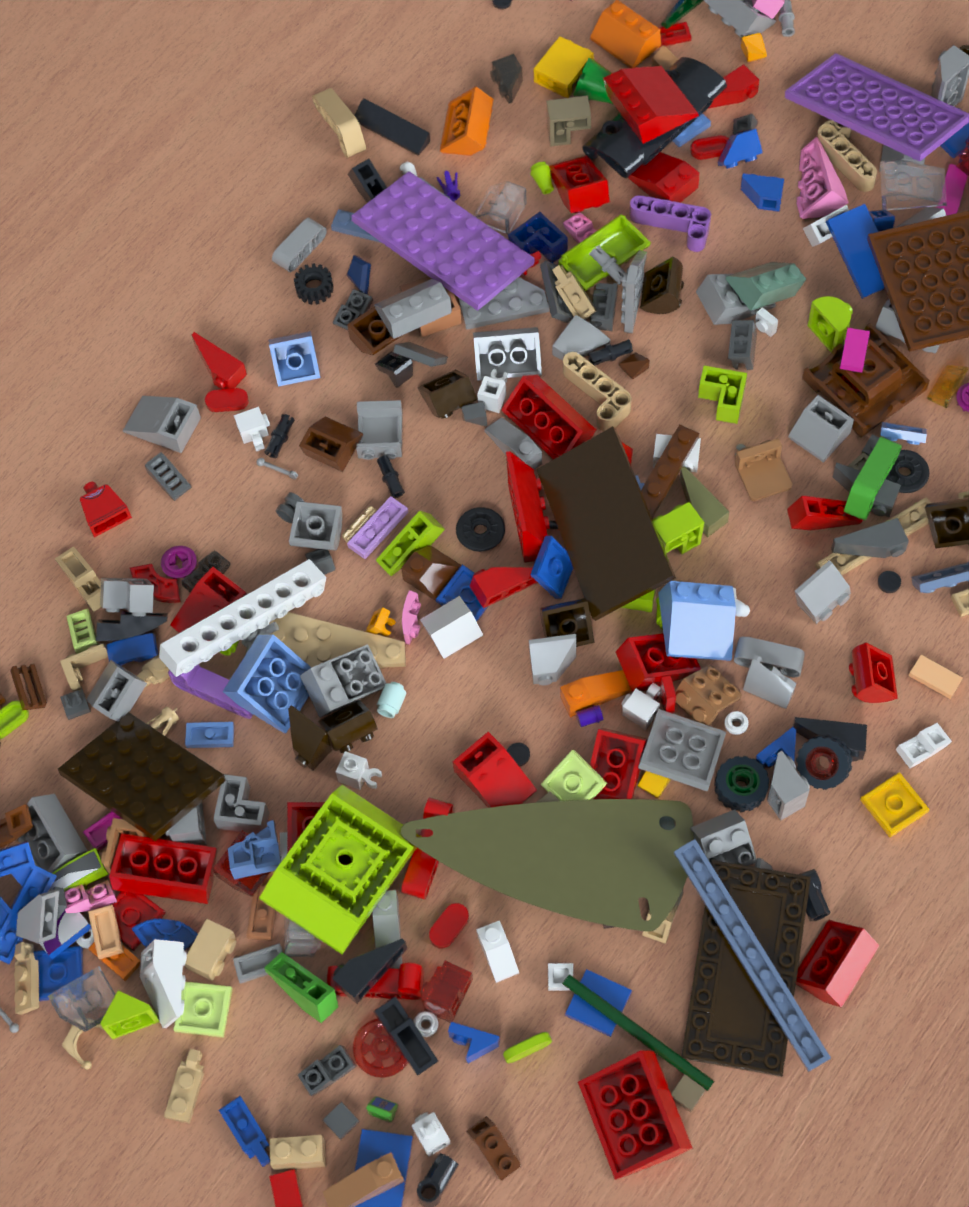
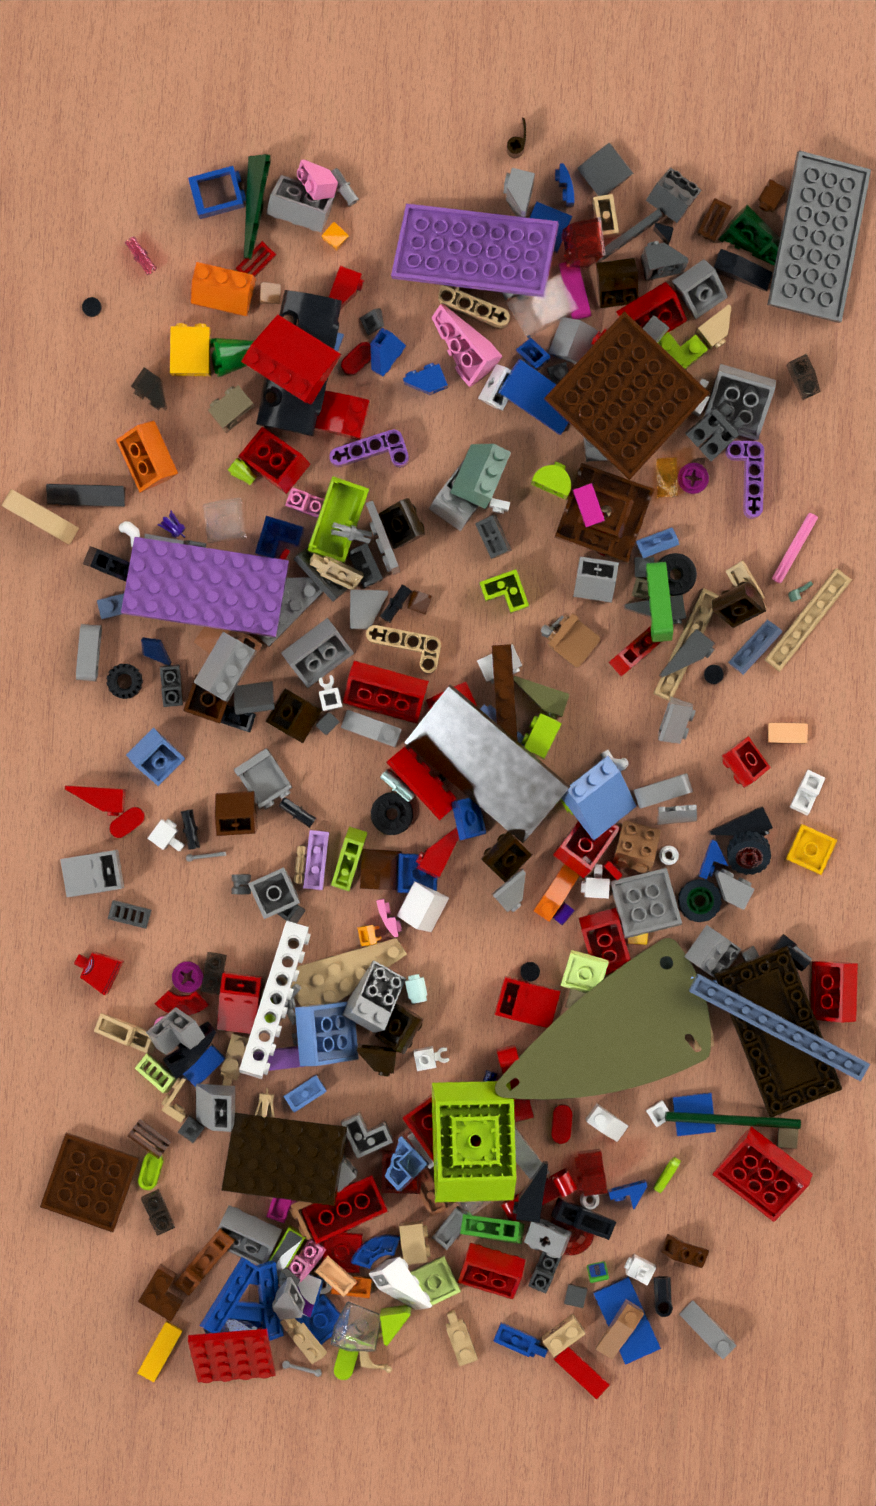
camera: 40 degrees left, 25 degrees up
(49, 1035) = (345, 1364): none -> lime tile
(269, 1032) = (491, 1270): none -> red slope
(353, 1031) = (557, 1237): none -> light grey brick
(503, 505) = (397, 785): none -> light aqua axle

